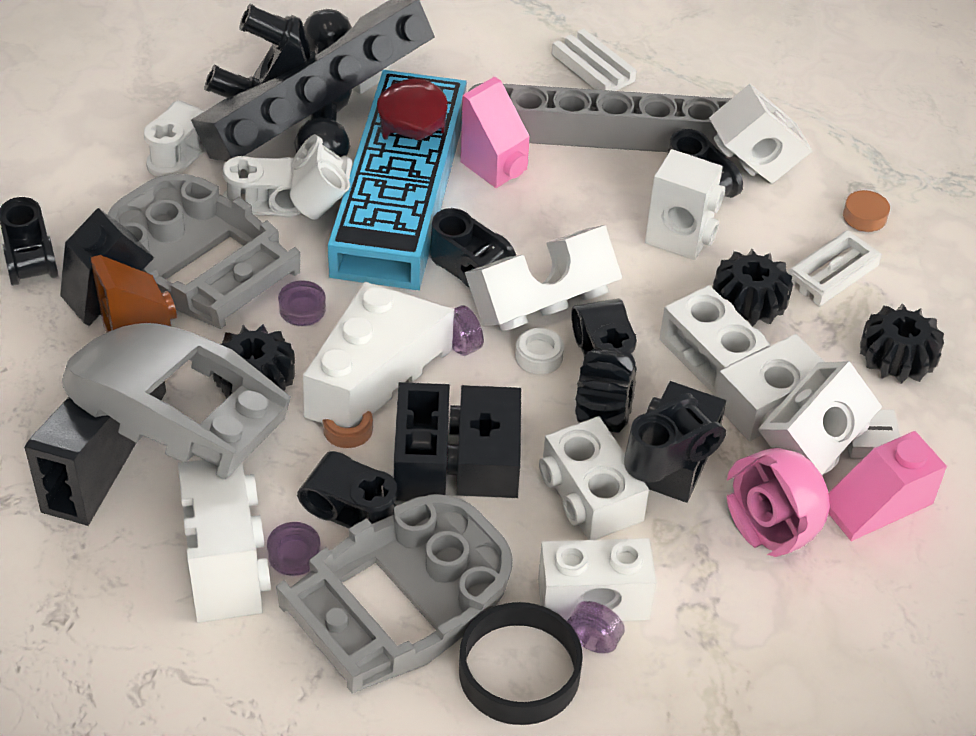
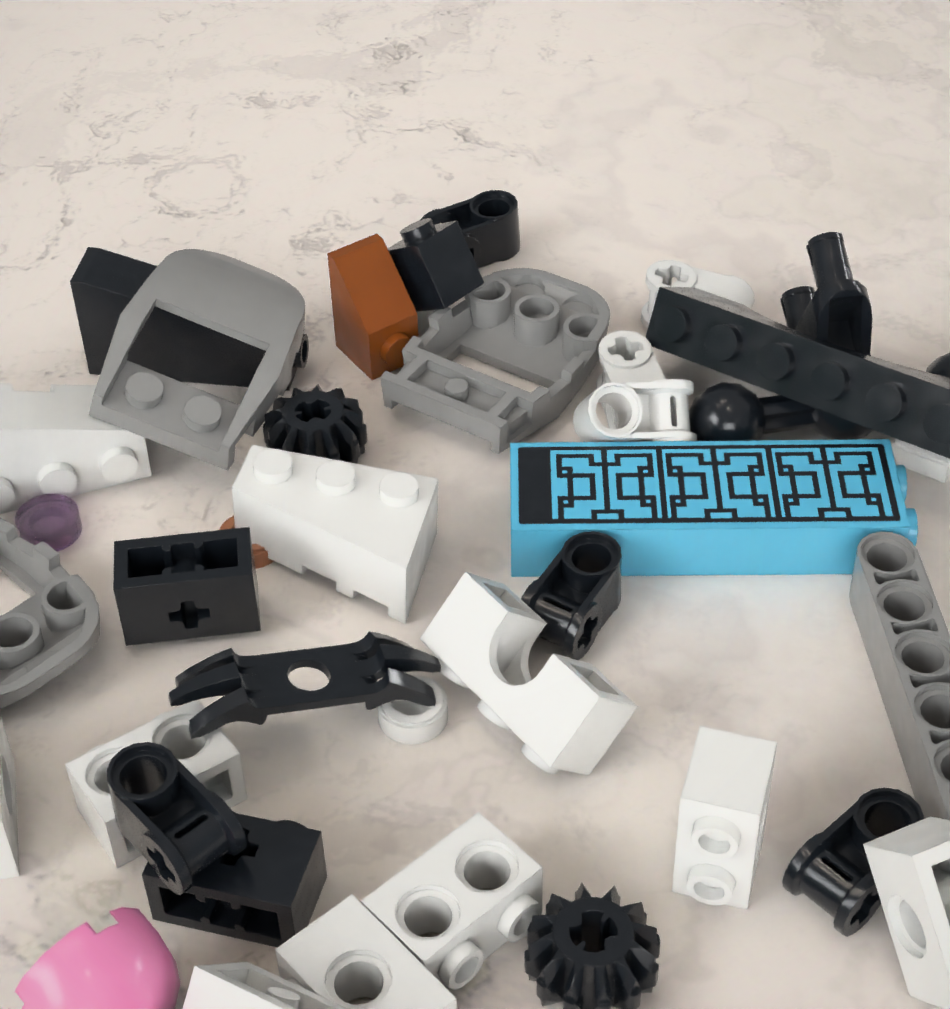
camera: 85 degrees right, 5 degrees down
(302, 303) = (449, 461): clear purple tile -> none
(347, 490) = (93, 545): black piece -> none
(412, 109) = (771, 458): dark red hair -> none
(466, 331) = (412, 609): clear purple tile -> none
(488, 441) = (183, 639): black brick -> none
(493, 134) = (806, 573): bright pink slope -> none
(548, 393) = (261, 687): none -> black piece
(603, 326) = (438, 765): black piece -> none
(606, 388) = (303, 764): black gear -> none

